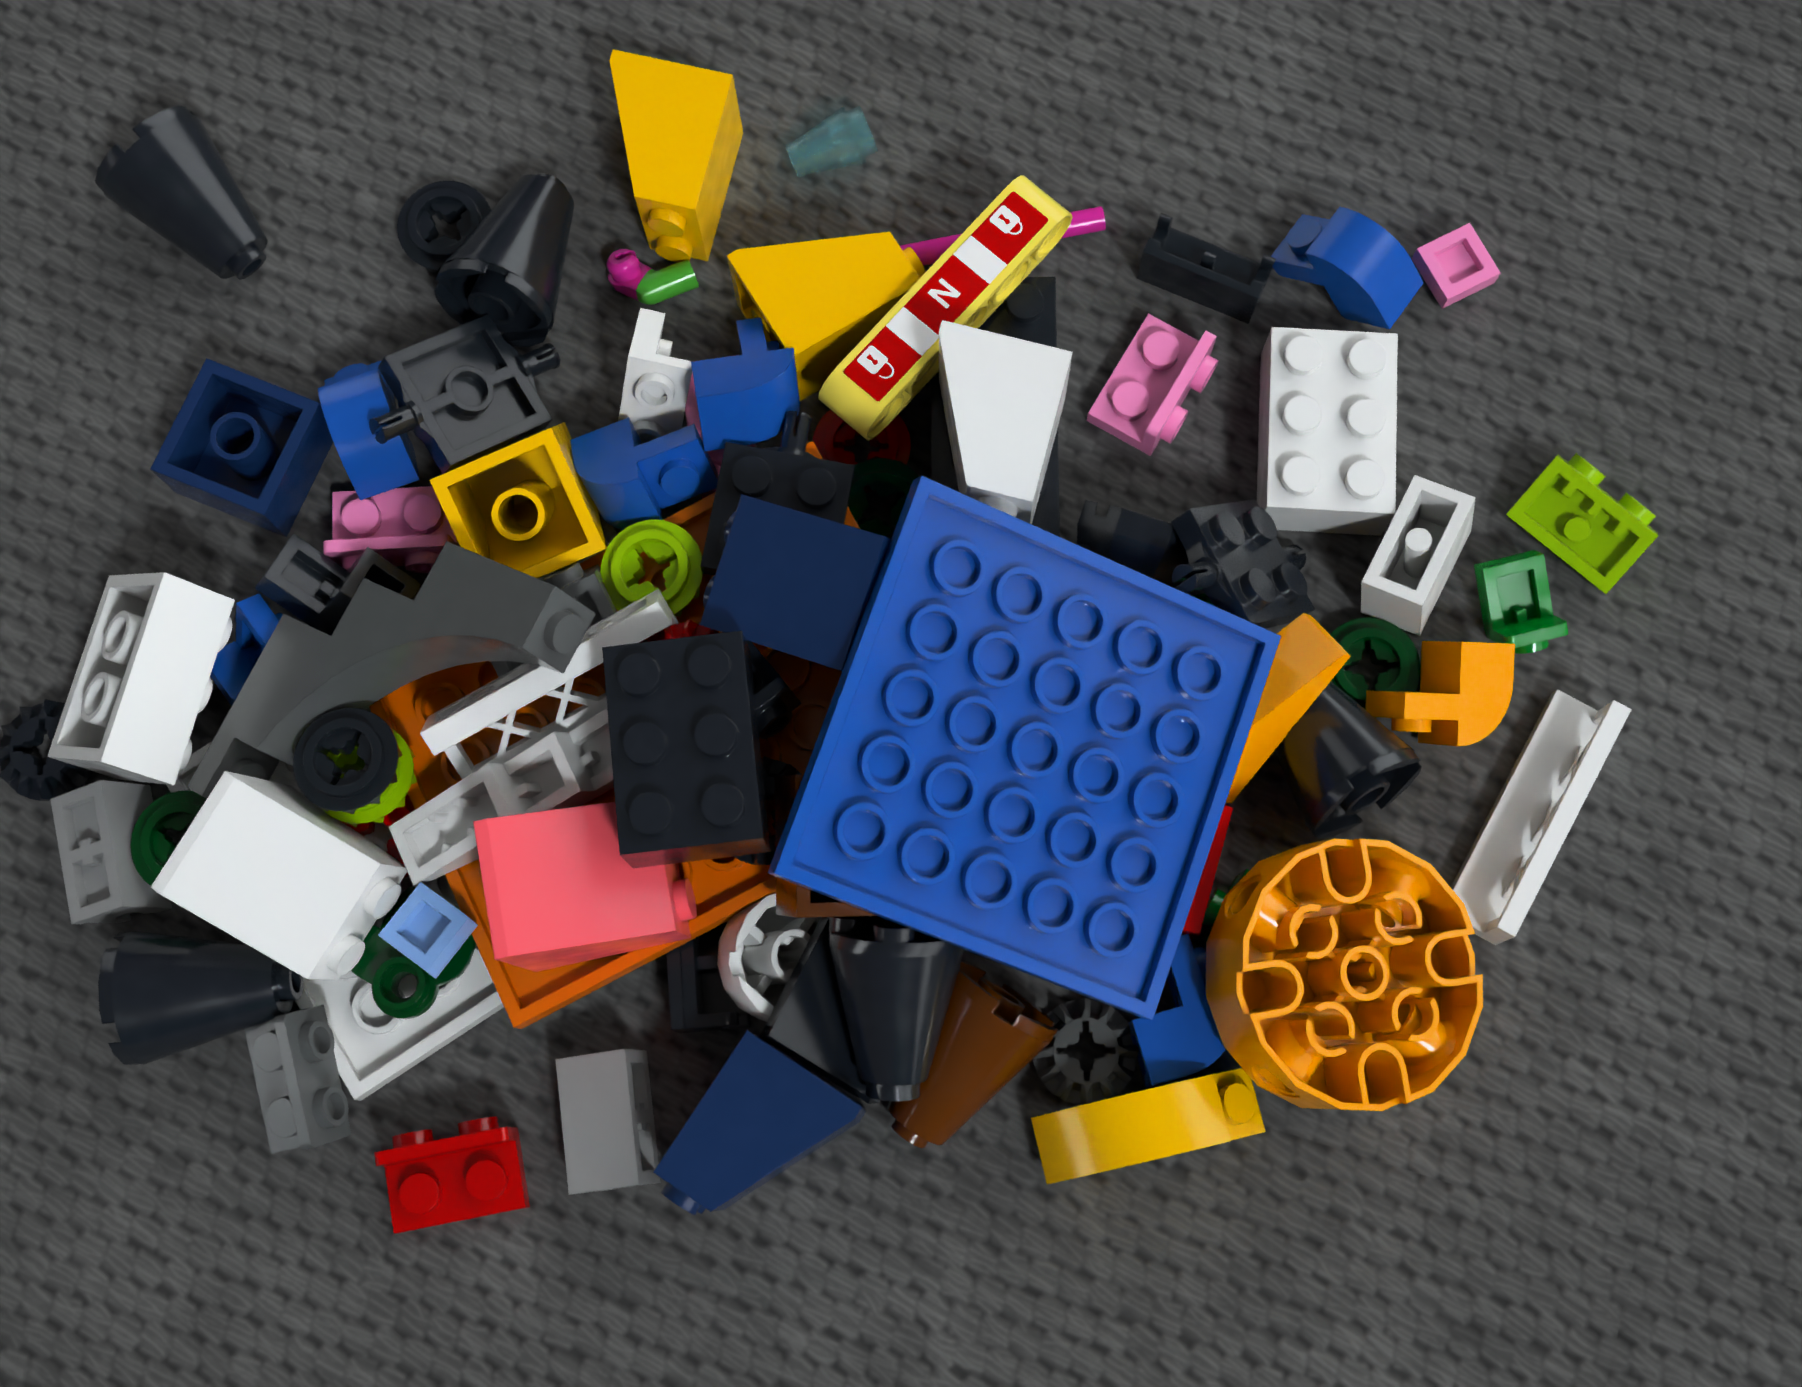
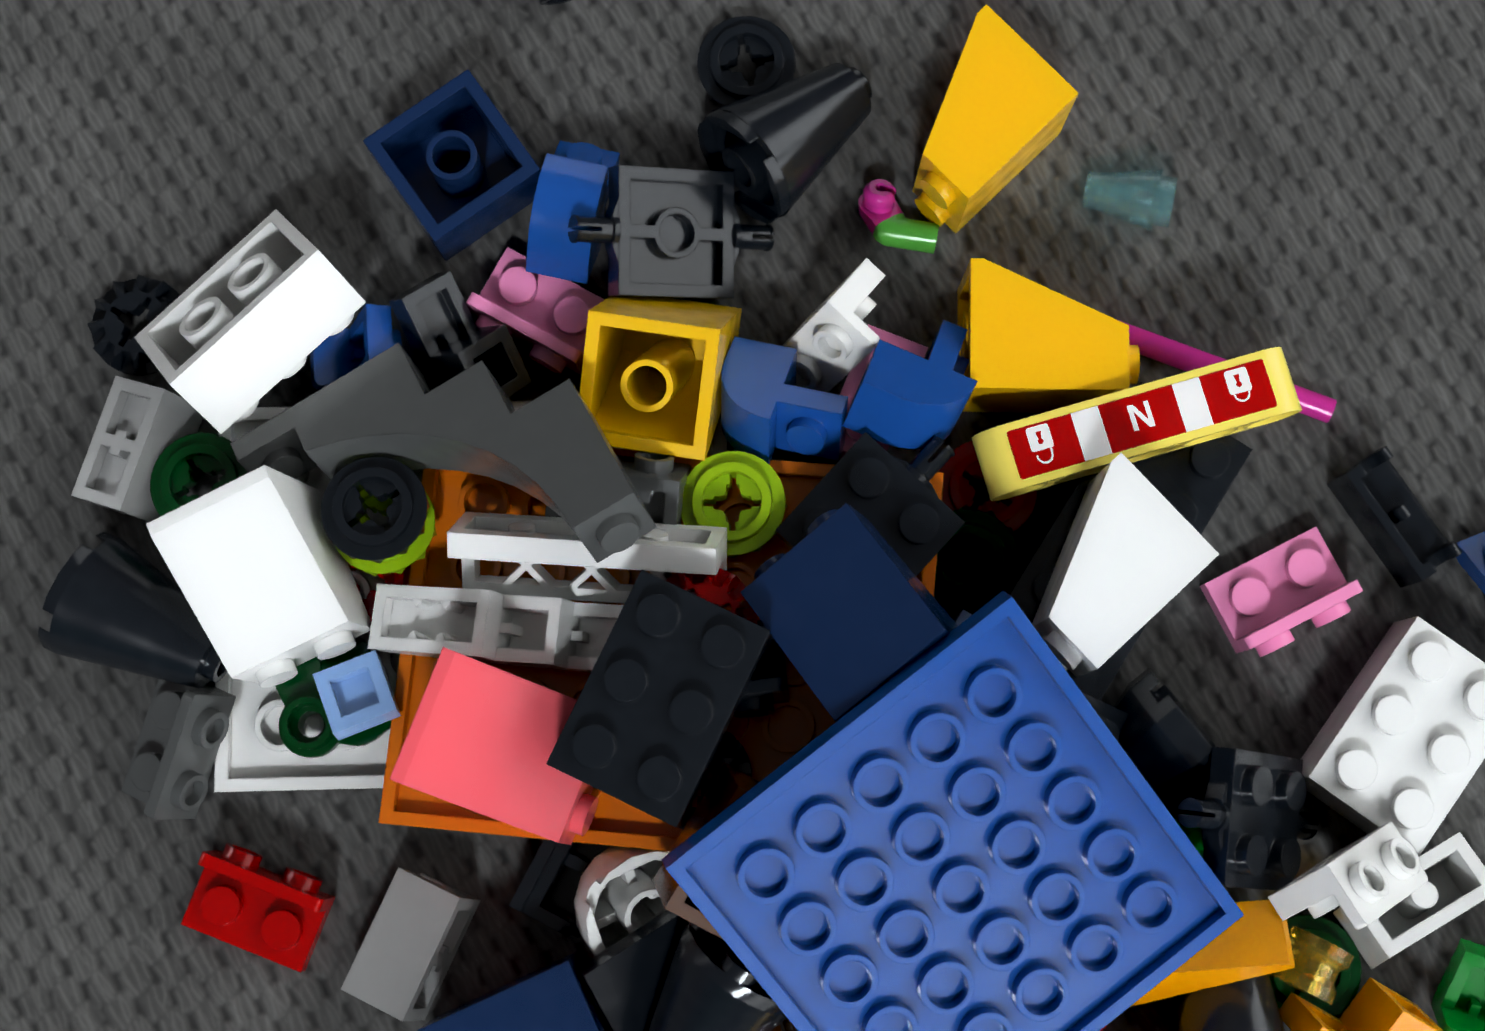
camera: 30 degrees right, 5 degrees up
(1356, 550) = (1361, 878): none -> white bracket
(1371, 656) = (1315, 965): none -> clear yellow wheel

